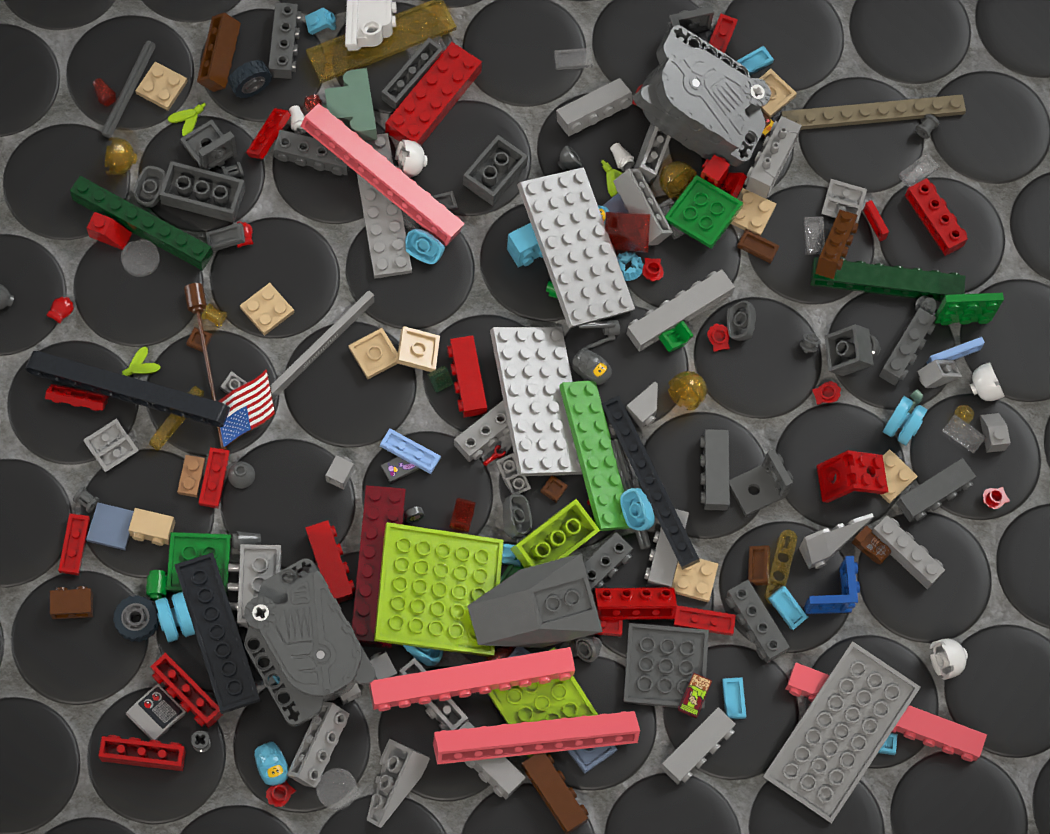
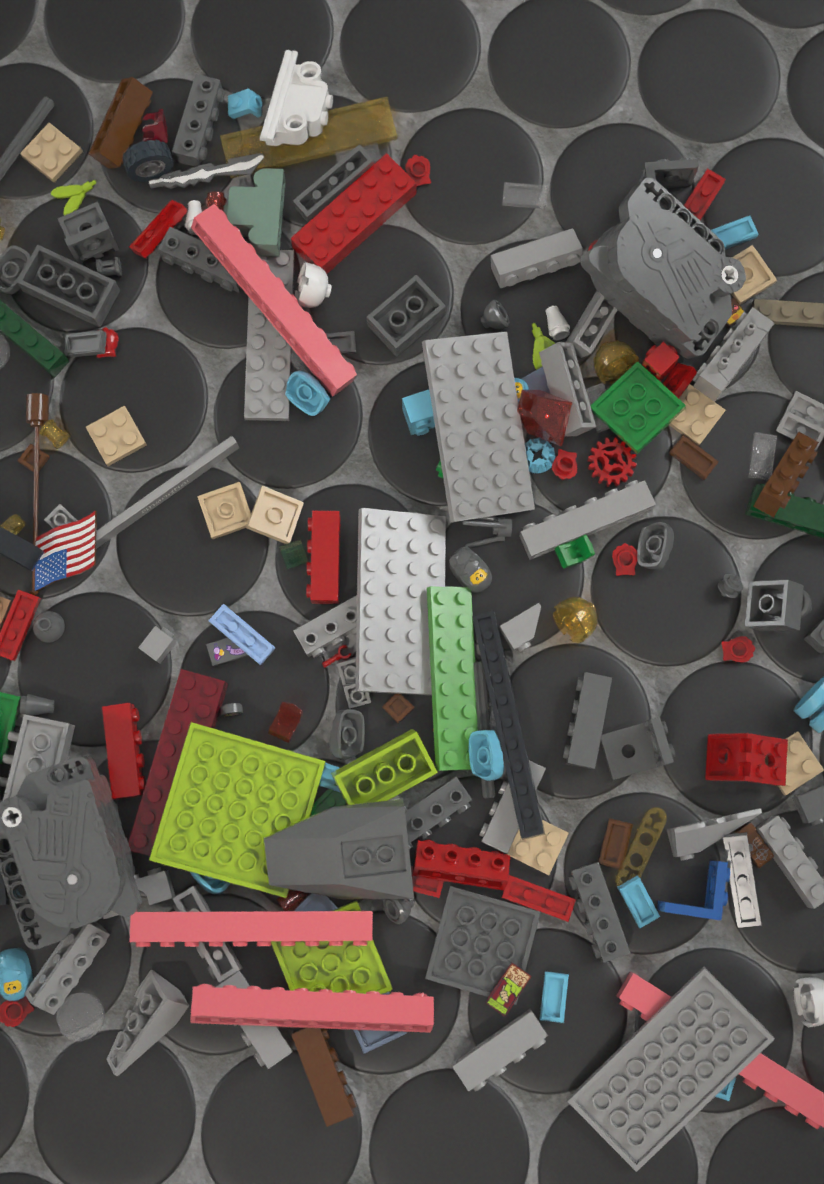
camera: 20 degrees right, 10 degrees up
(253, 50) = (158, 130): none -> dark red hinge
(300, 81) = (205, 173): none -> dark grey sword
(480, 50) = (418, 169): none -> red animal
(691, 269) = (618, 467): none -> red gear
(869, 573) = (742, 880): none -> plate

